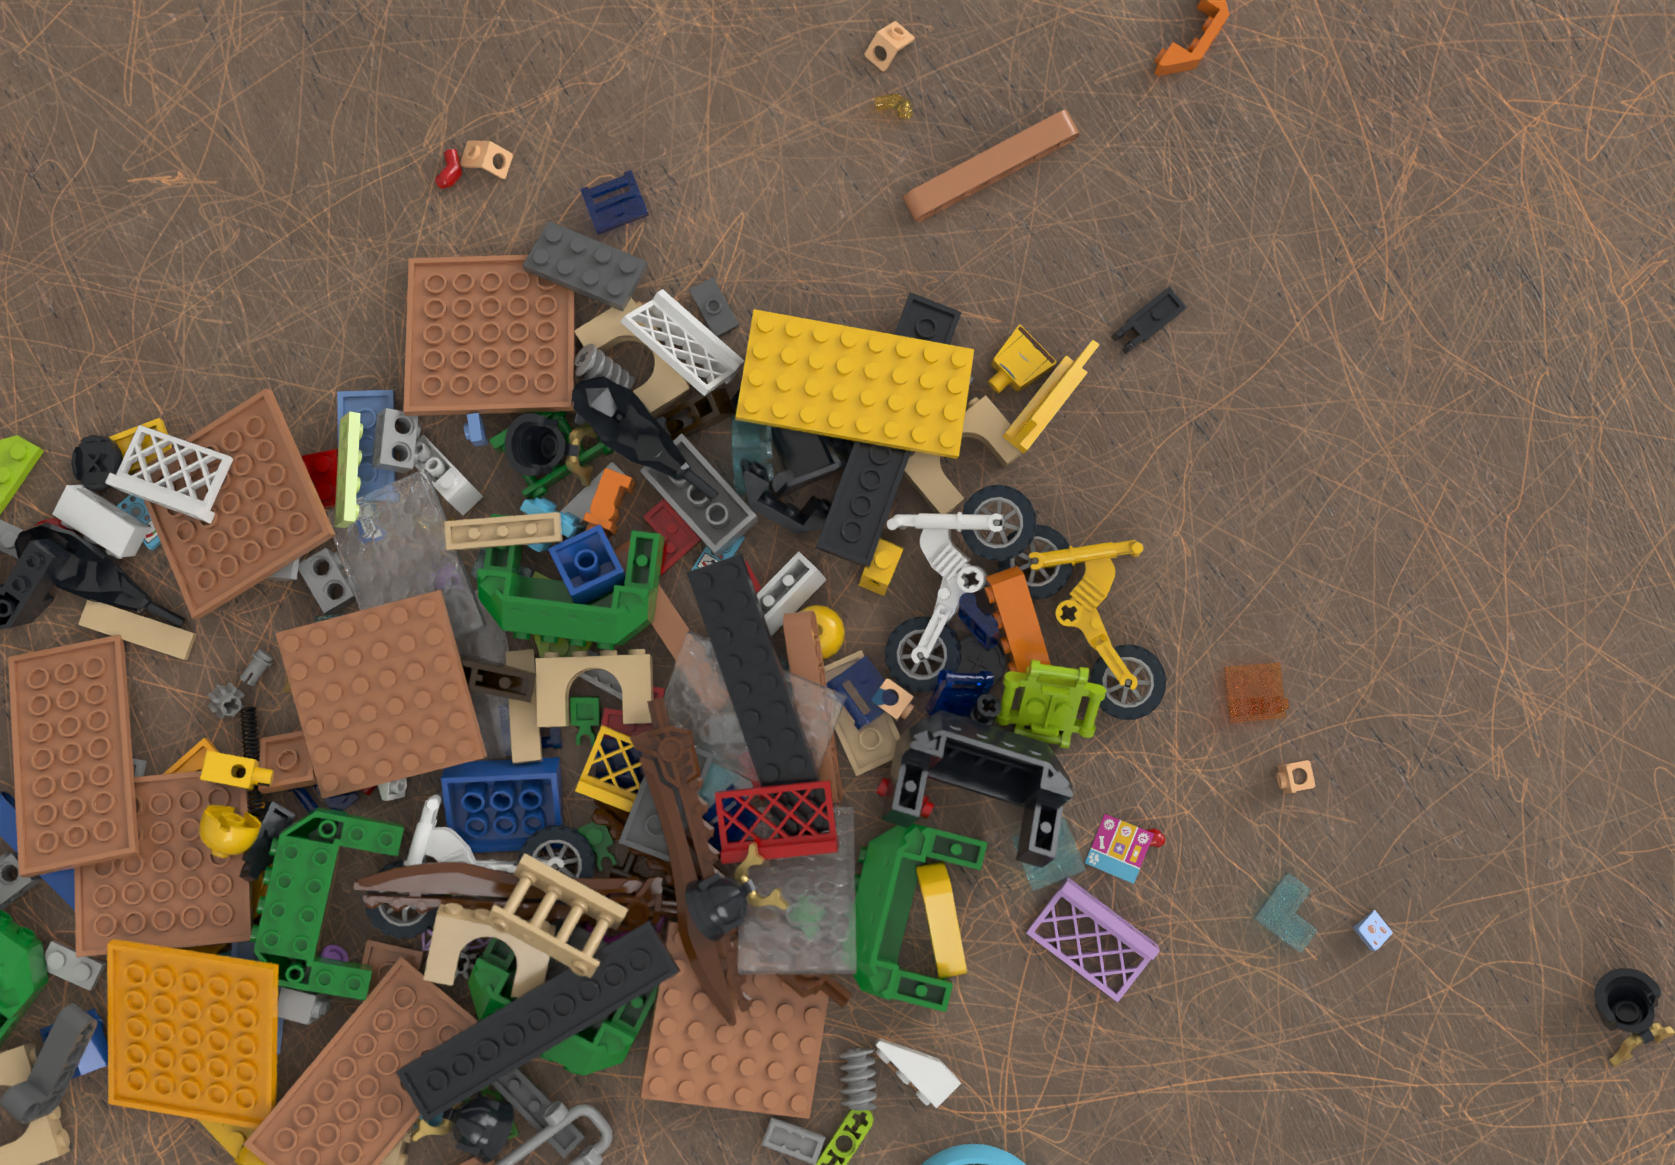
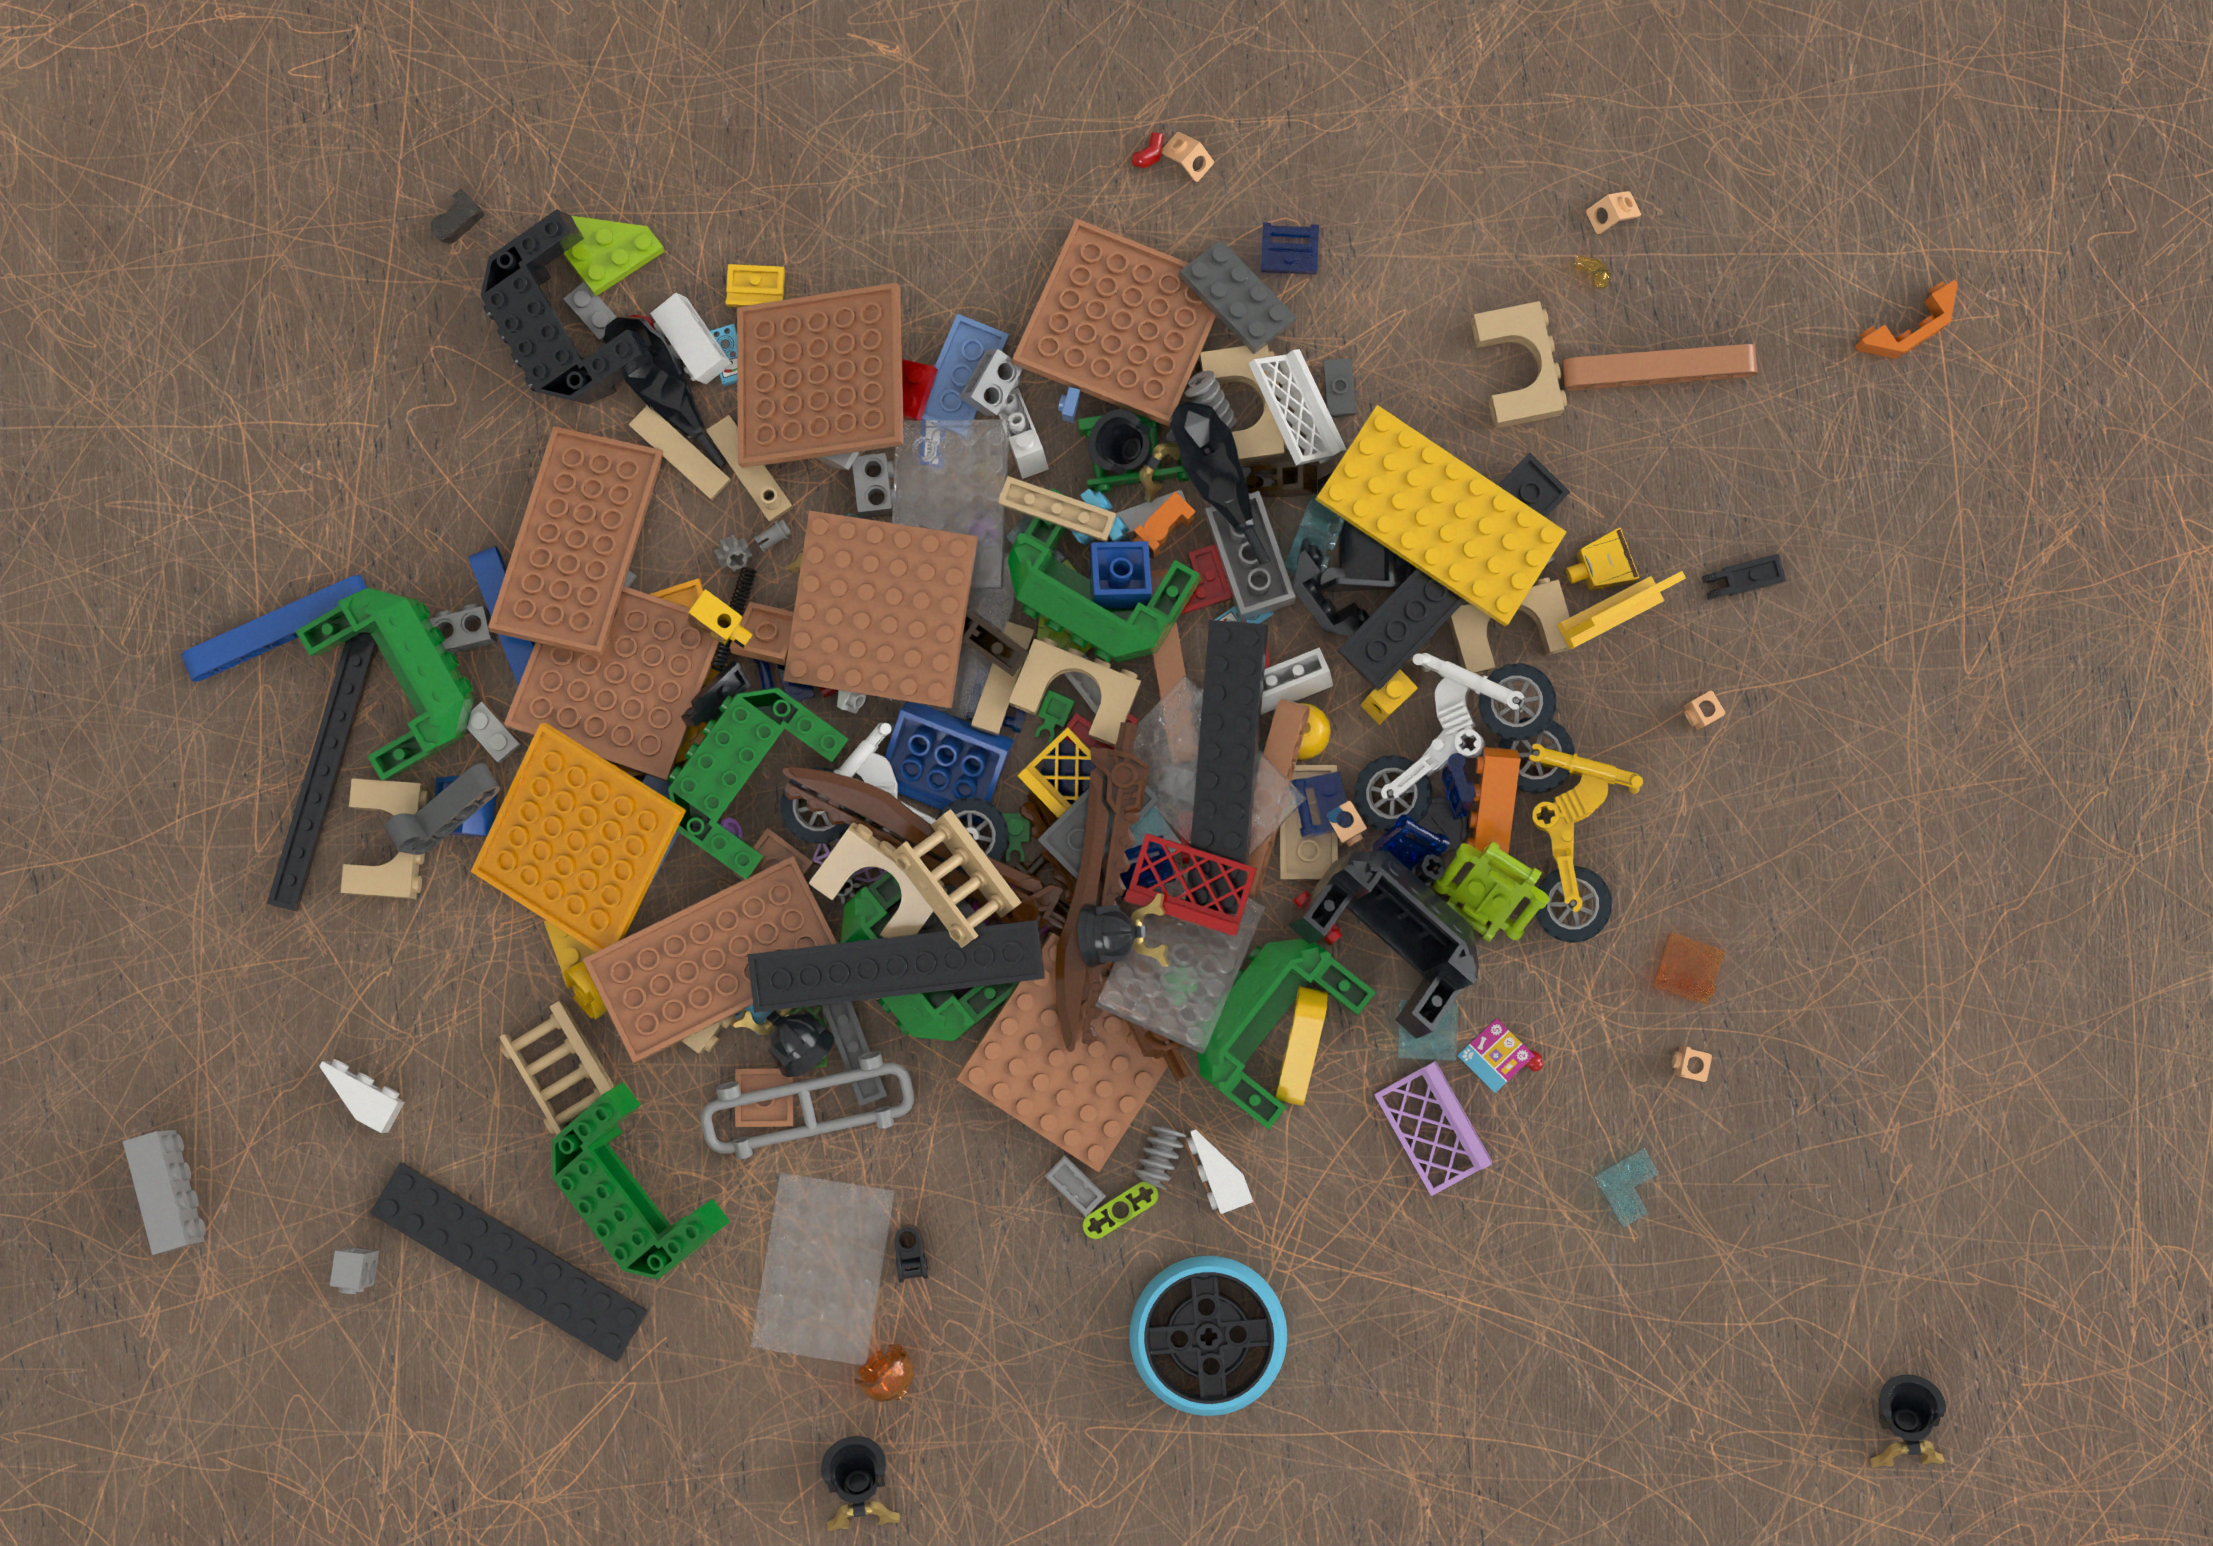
camera: 30 degrees right, 0 degrees up
(95, 460) = (710, 283): black tile -> none
(168, 497) = (762, 343): white fence -> none
(218, 623) = (755, 479): none -> tan piece
(226, 831) = (688, 671): yellow cylinder -> none
(302, 1005) = (687, 858): light grey brick -> none
(347, 469) = (940, 384): yellowish green plate -> none
(857, 181) = (1525, 326): none -> tan arch
(1159, 462) = (1695, 715): none -> light nougat bracket
(1372, 931) = (1700, 1238): light blue slope -> none

